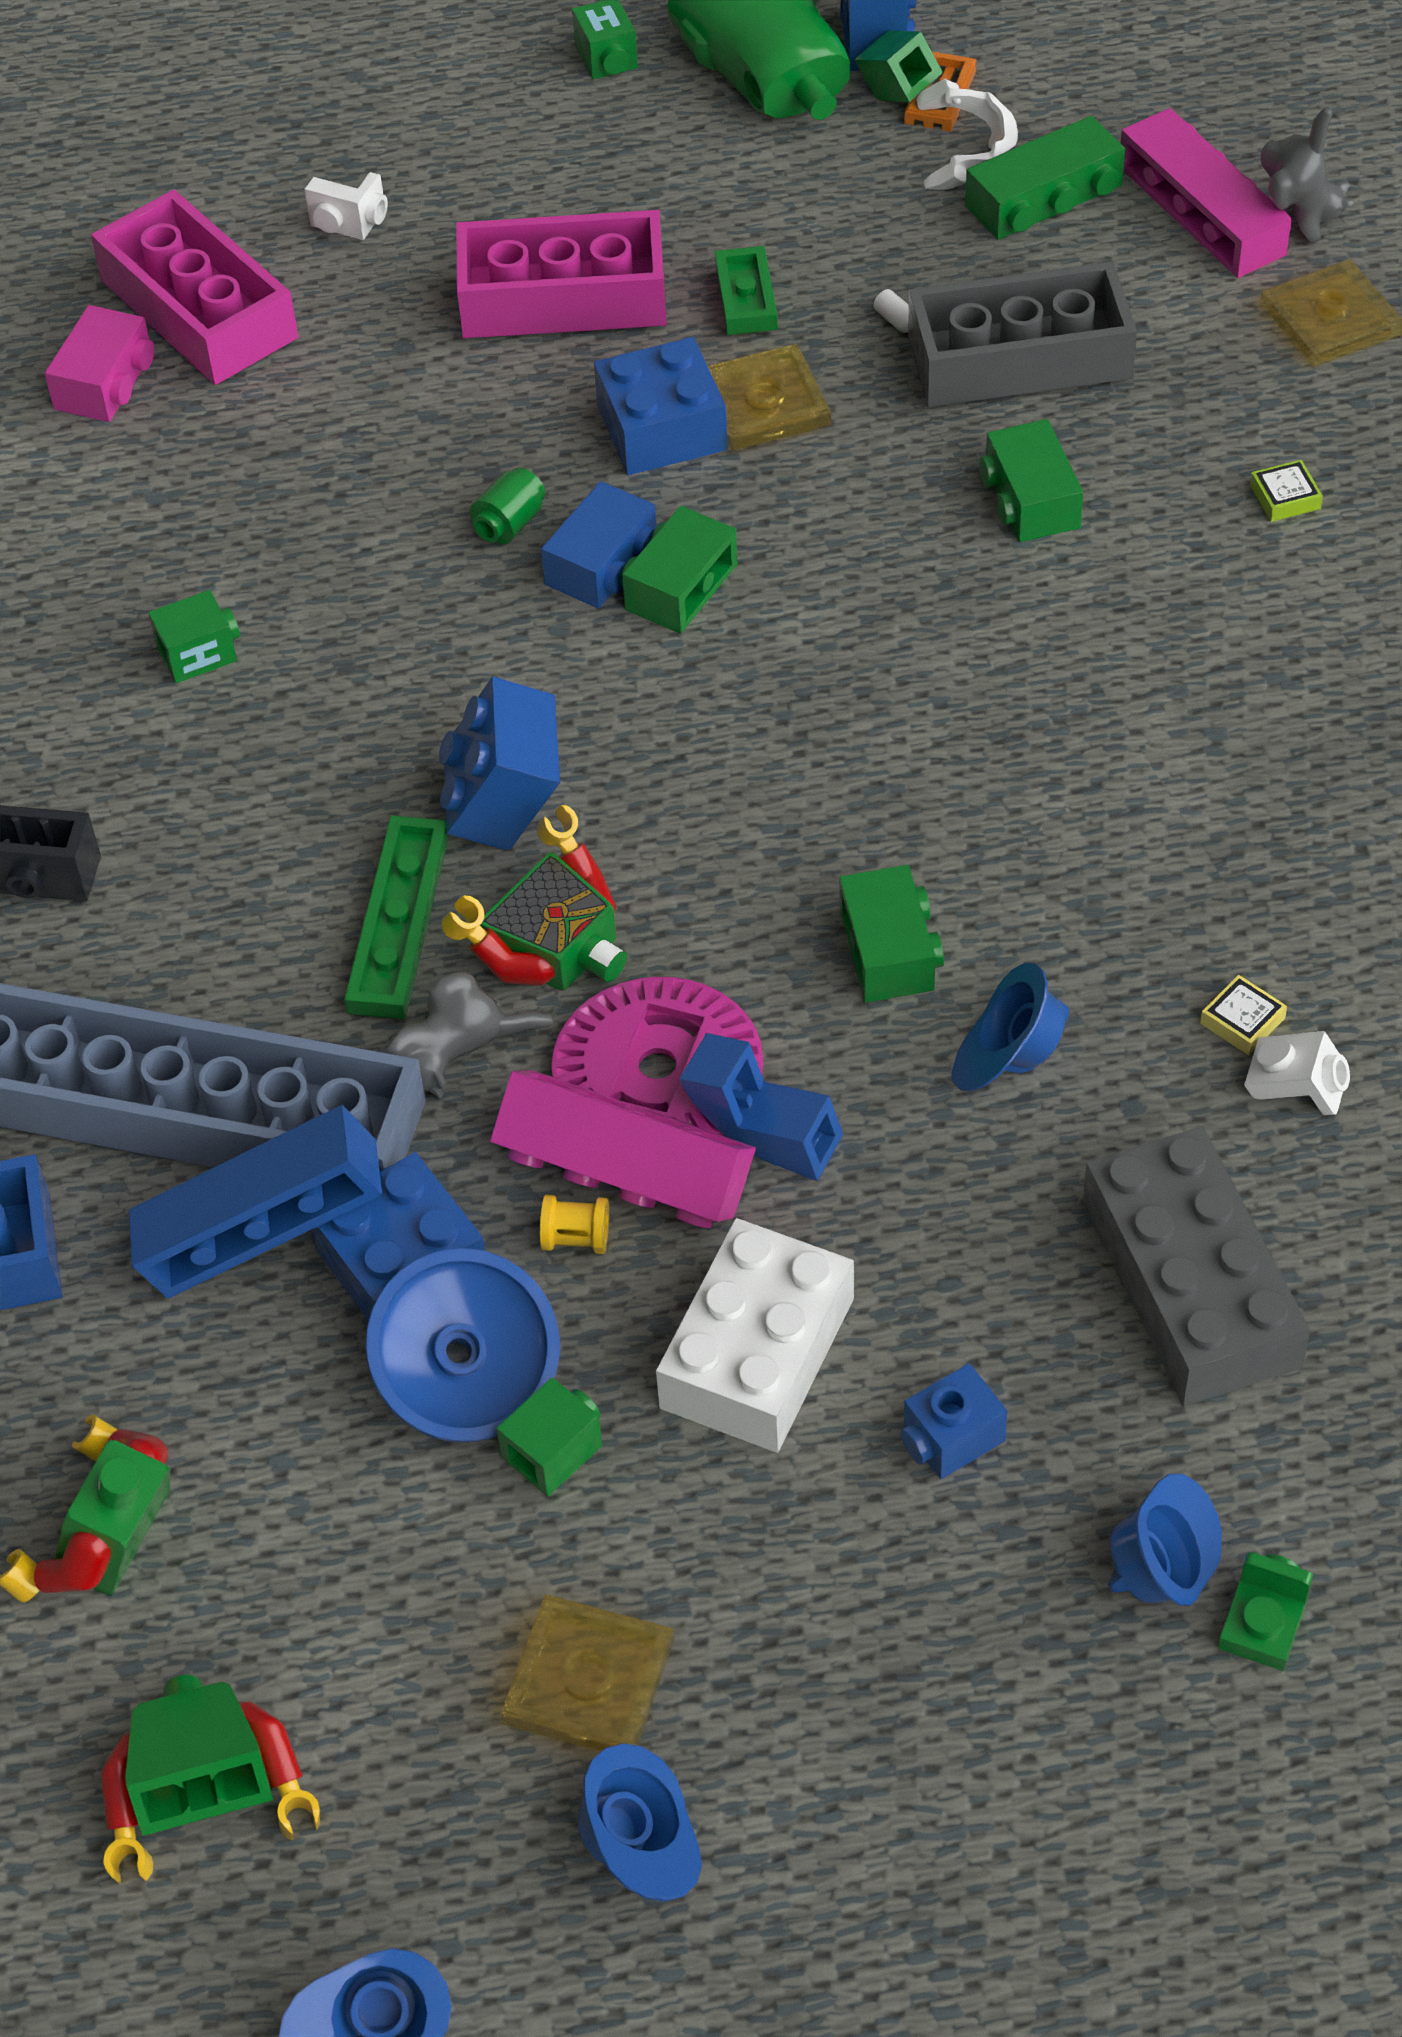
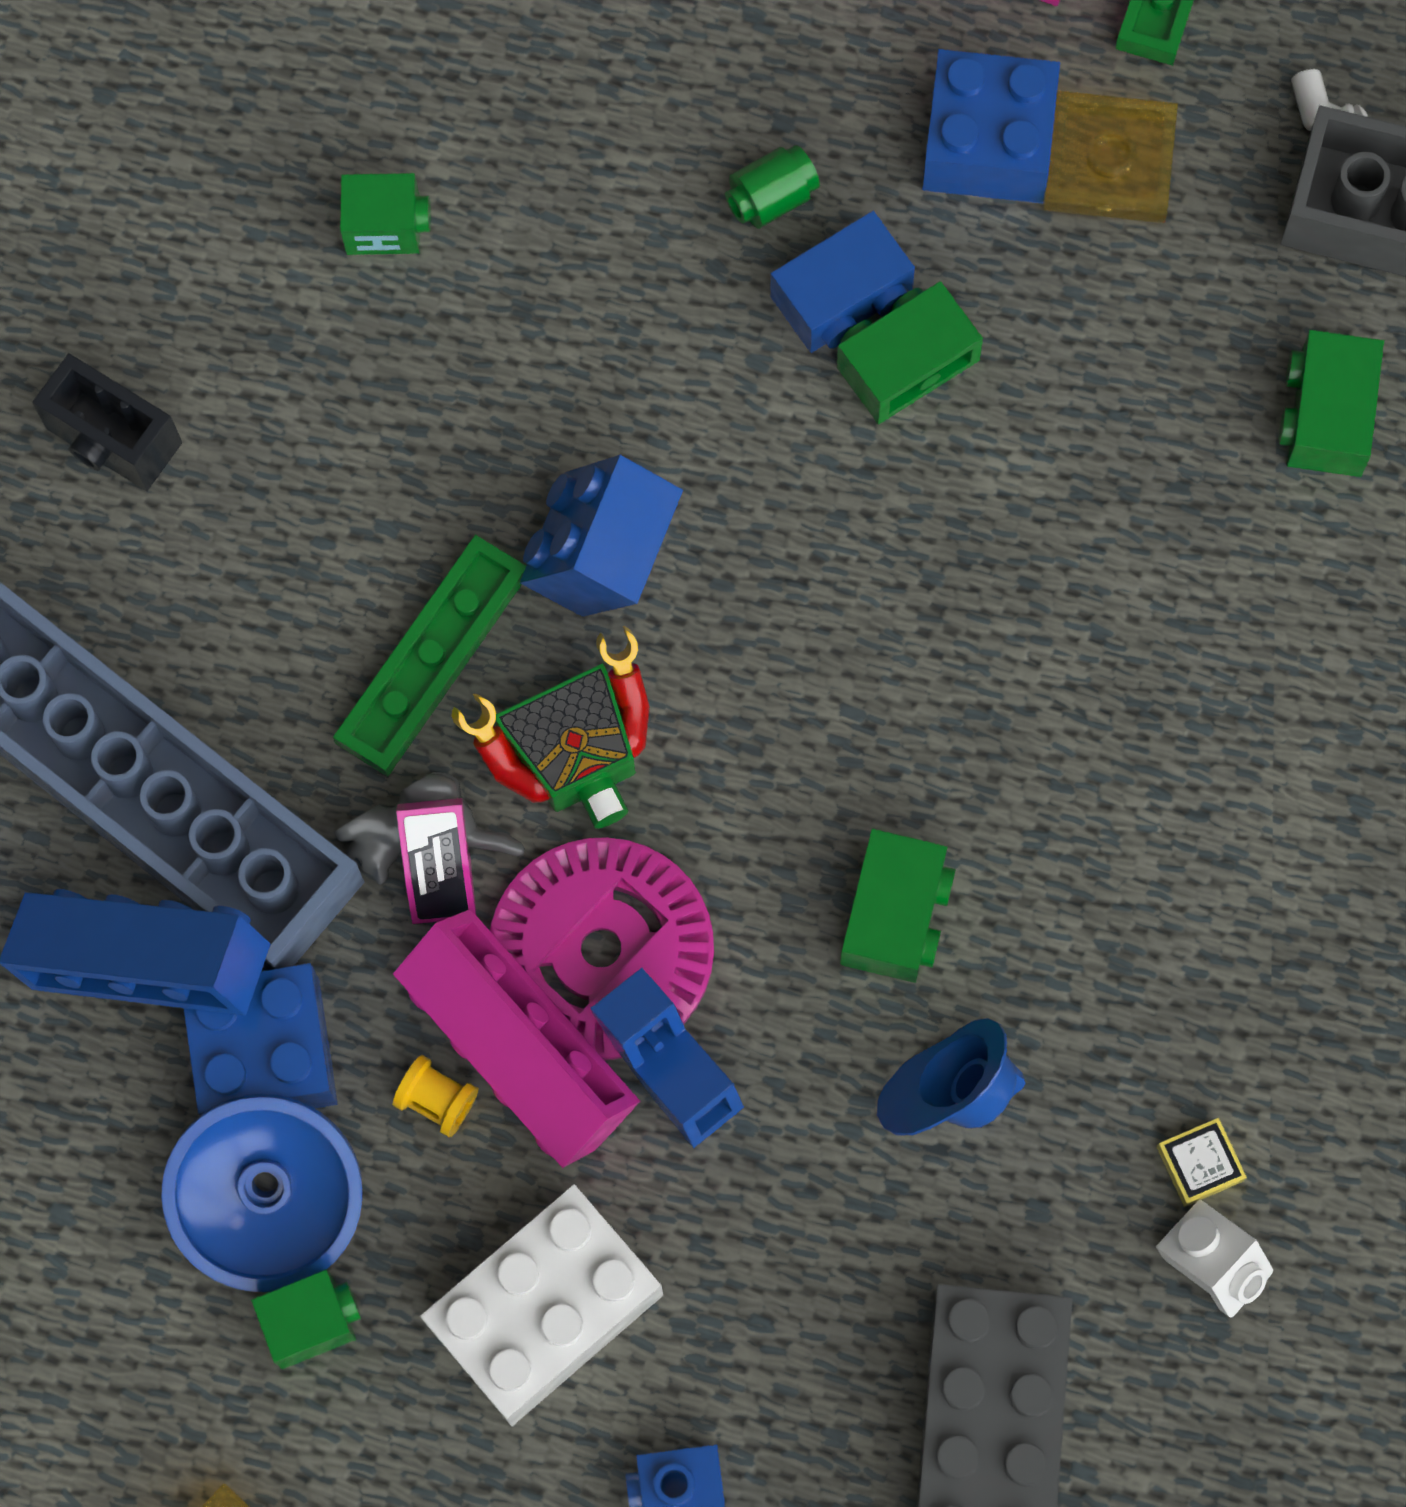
camera: 25 degrees right, 20 degrees up
(482, 1041) = (435, 859): none -> slope

